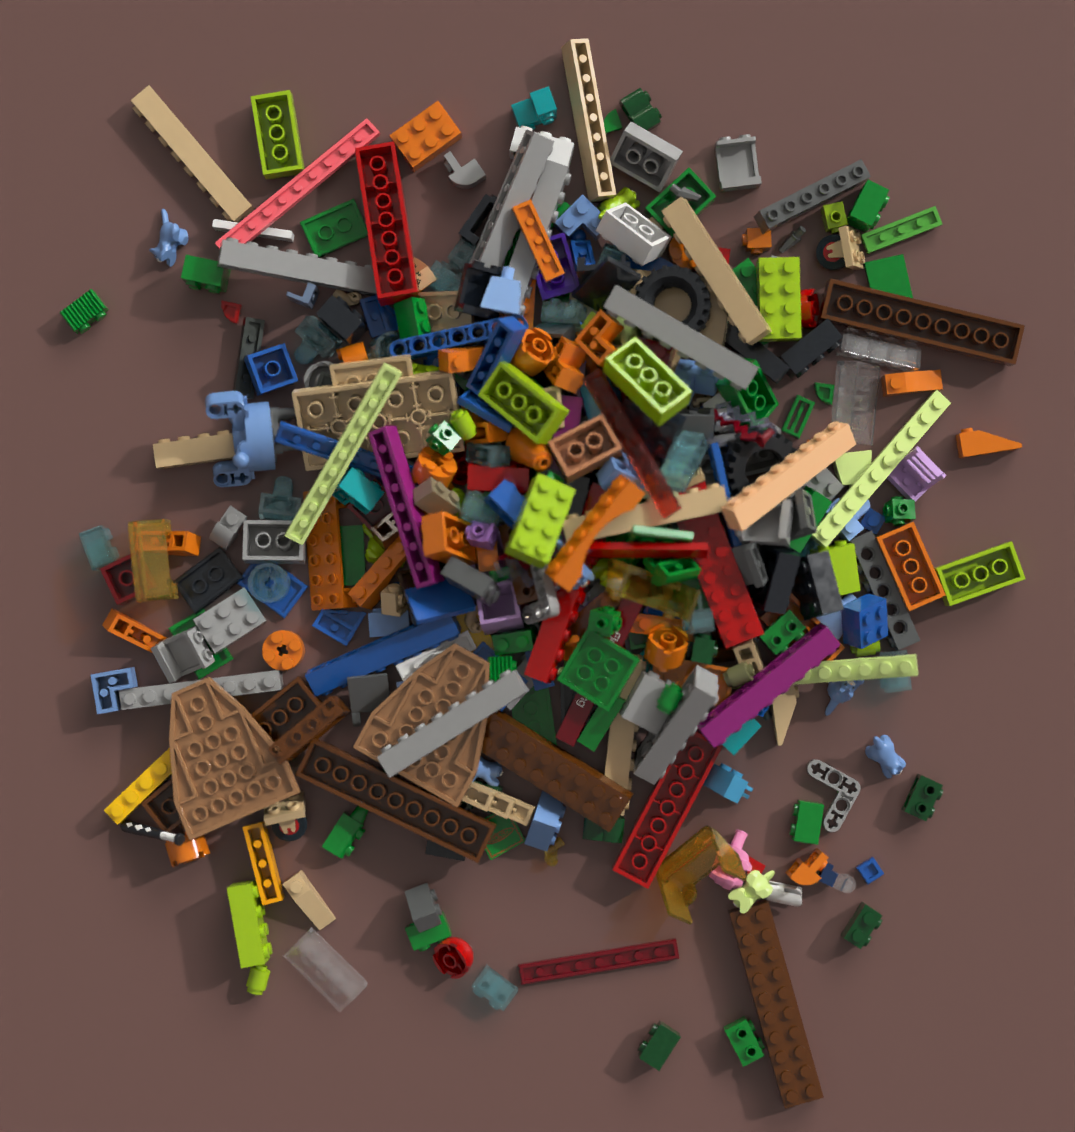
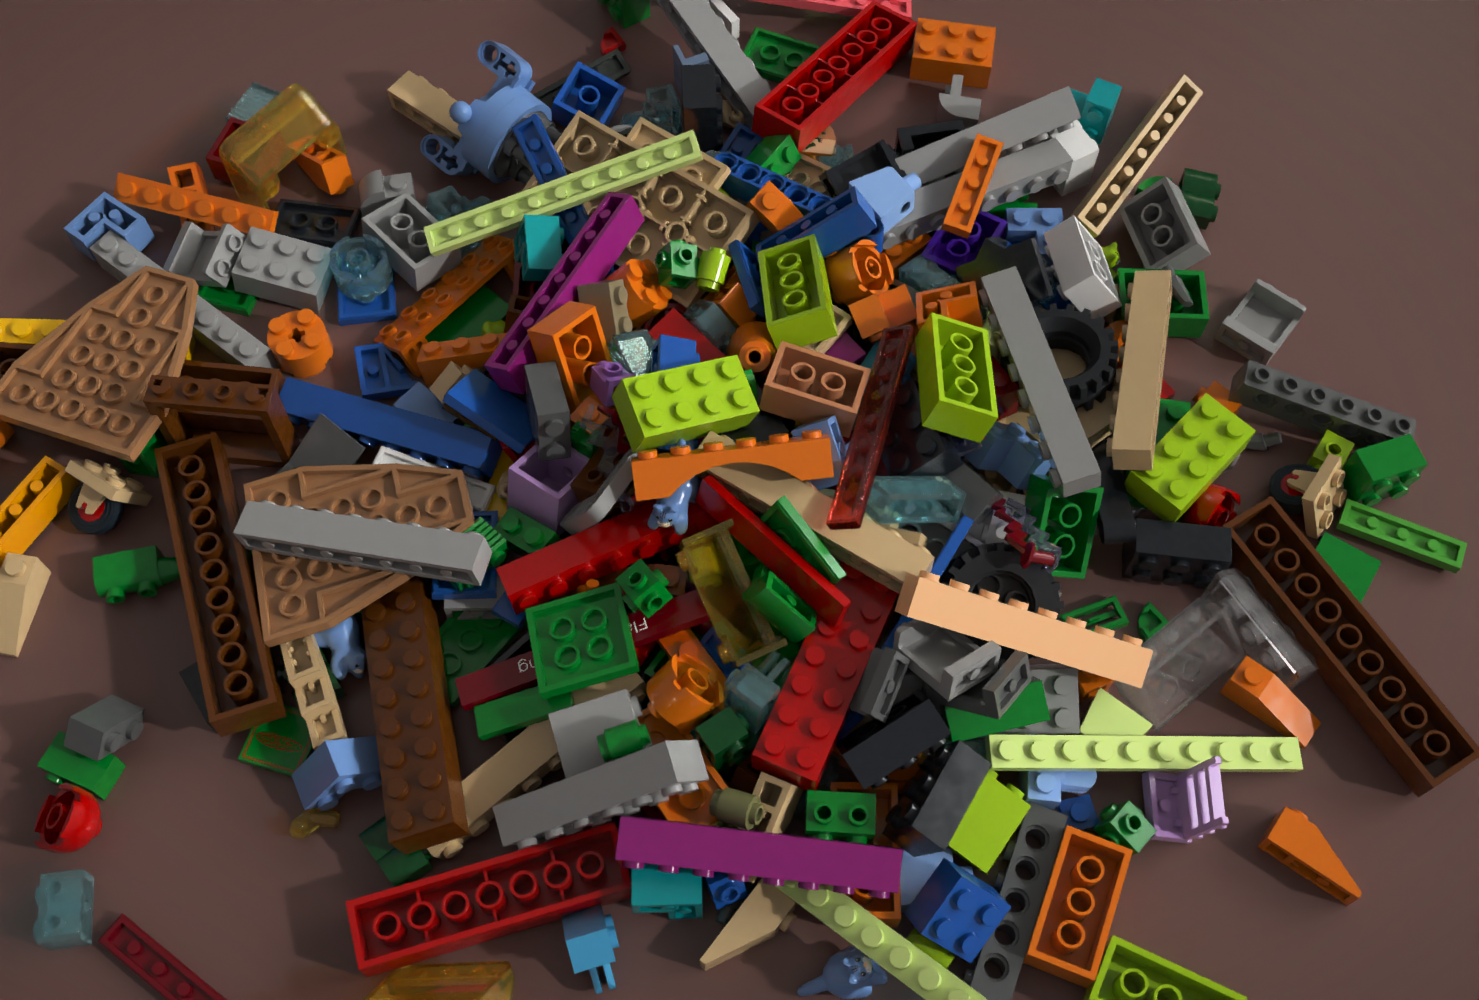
camera: 45 degrees right, 25 degrees down
(144, 634) = (192, 204): none -> orange plate

